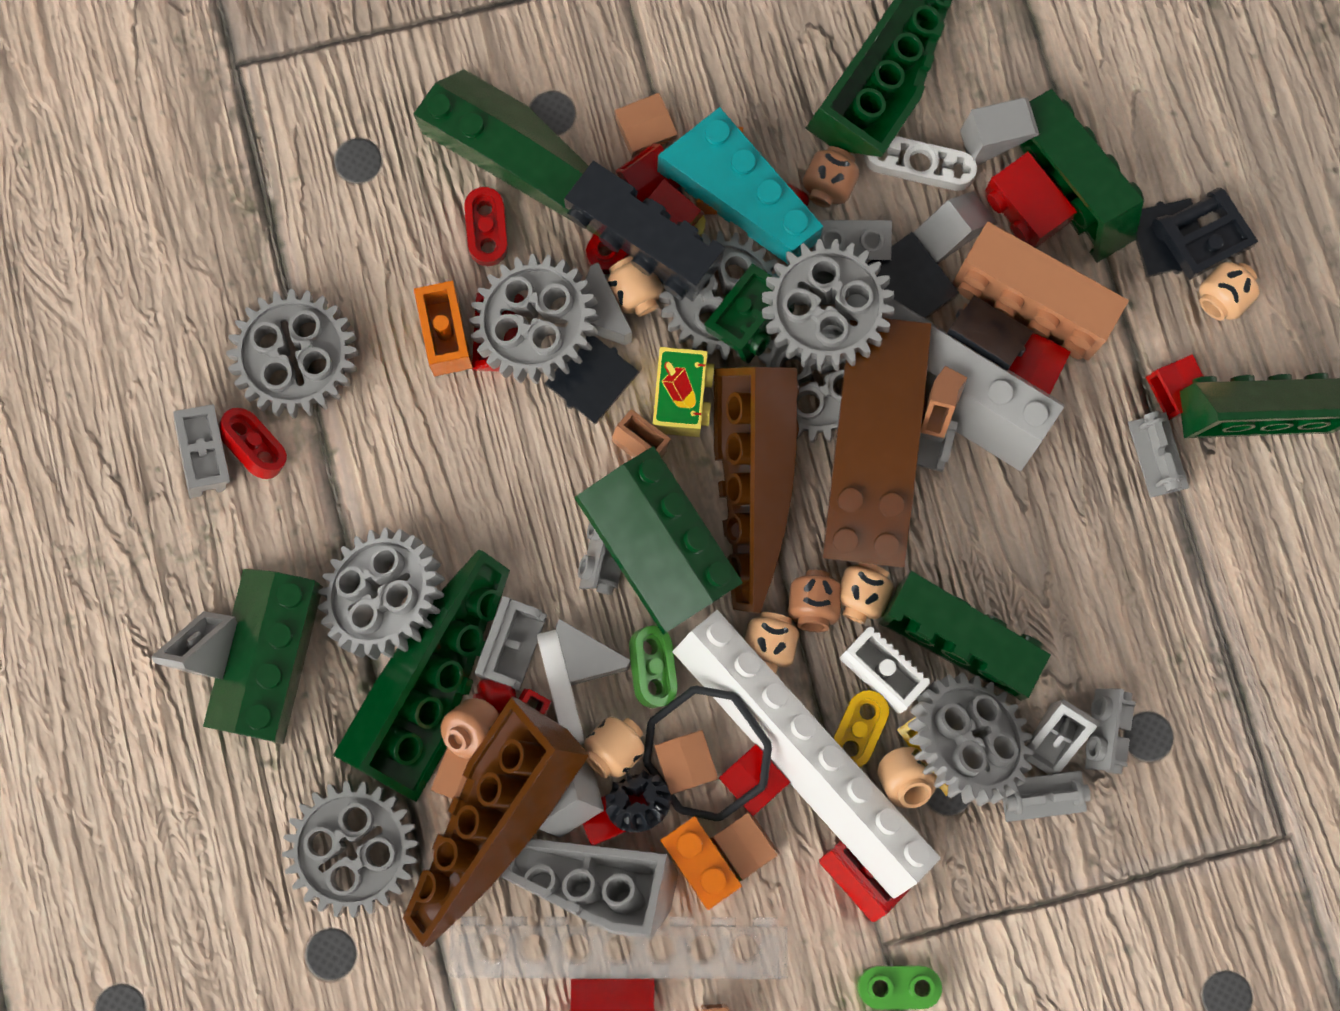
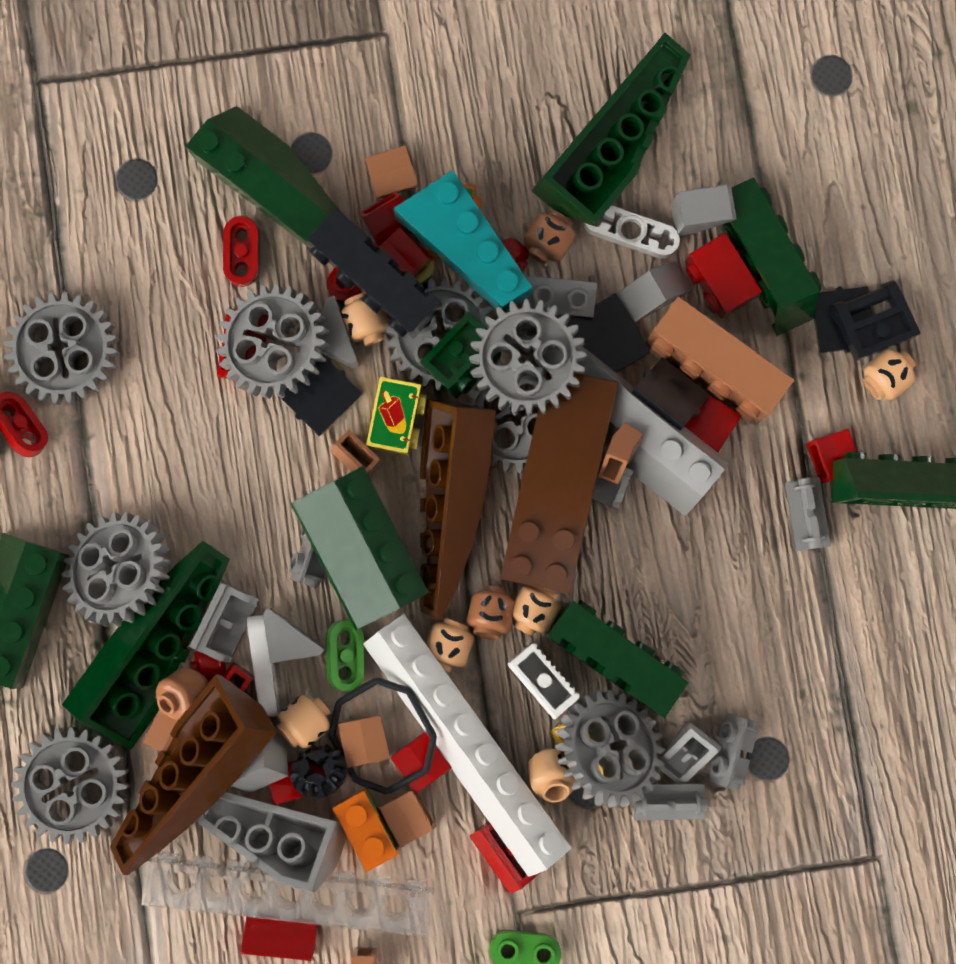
camera: 10 degrees right, 5 degrees up
(443, 328) = (193, 340): orange brick -> none
(859, 730) = (517, 728): yellow plate -> none

